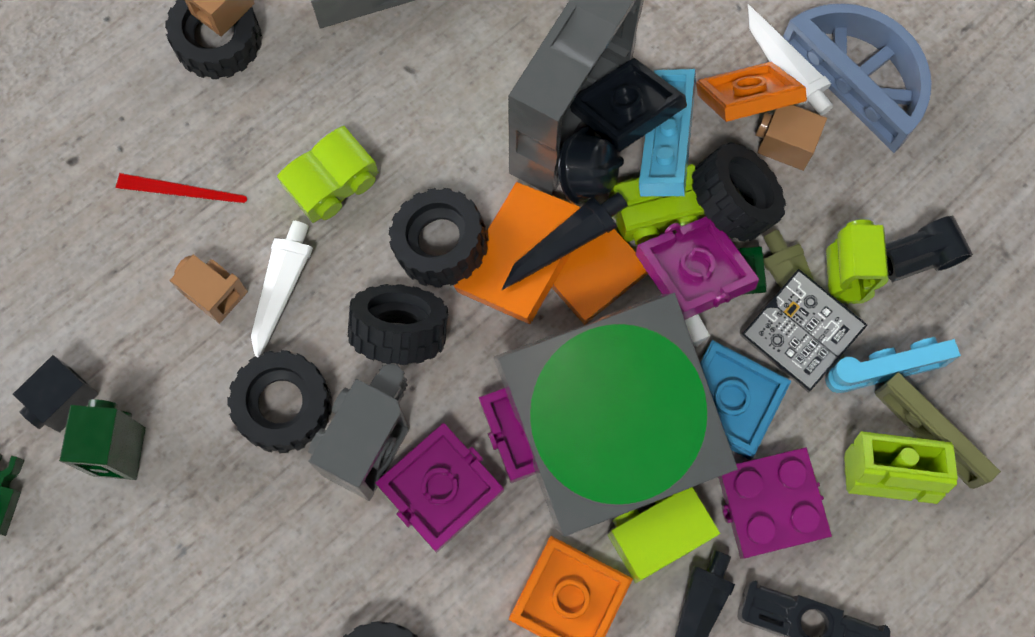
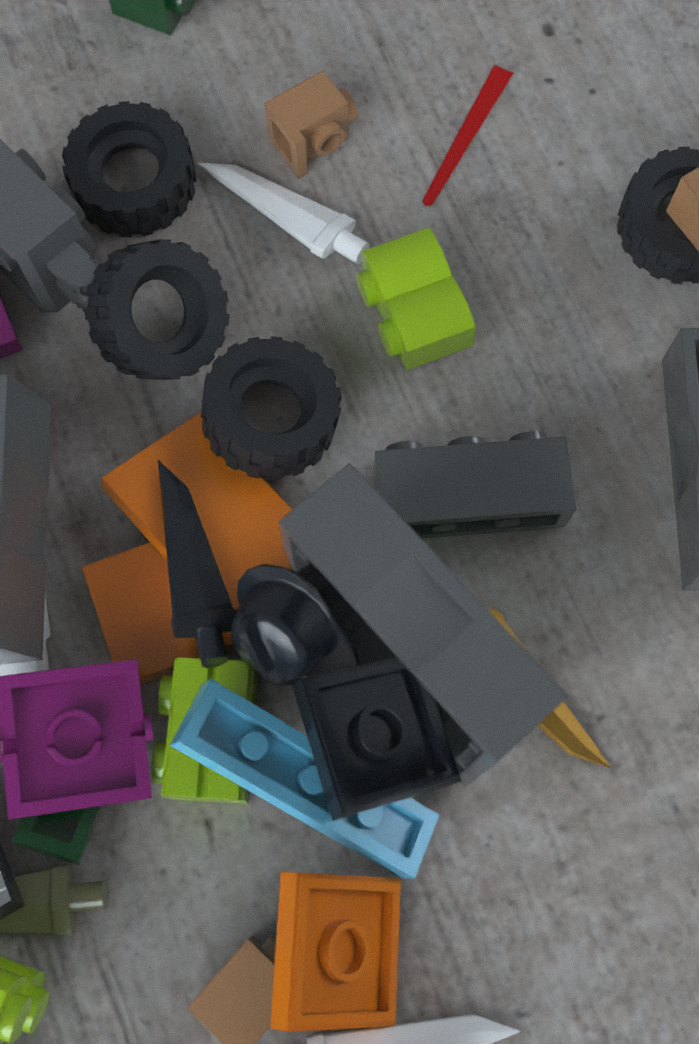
camera: 110 degrees right, 0 degrees up
(451, 105) = (478, 484): none -> dark grey brick
(722, 202) = (156, 901): black tyre -> none

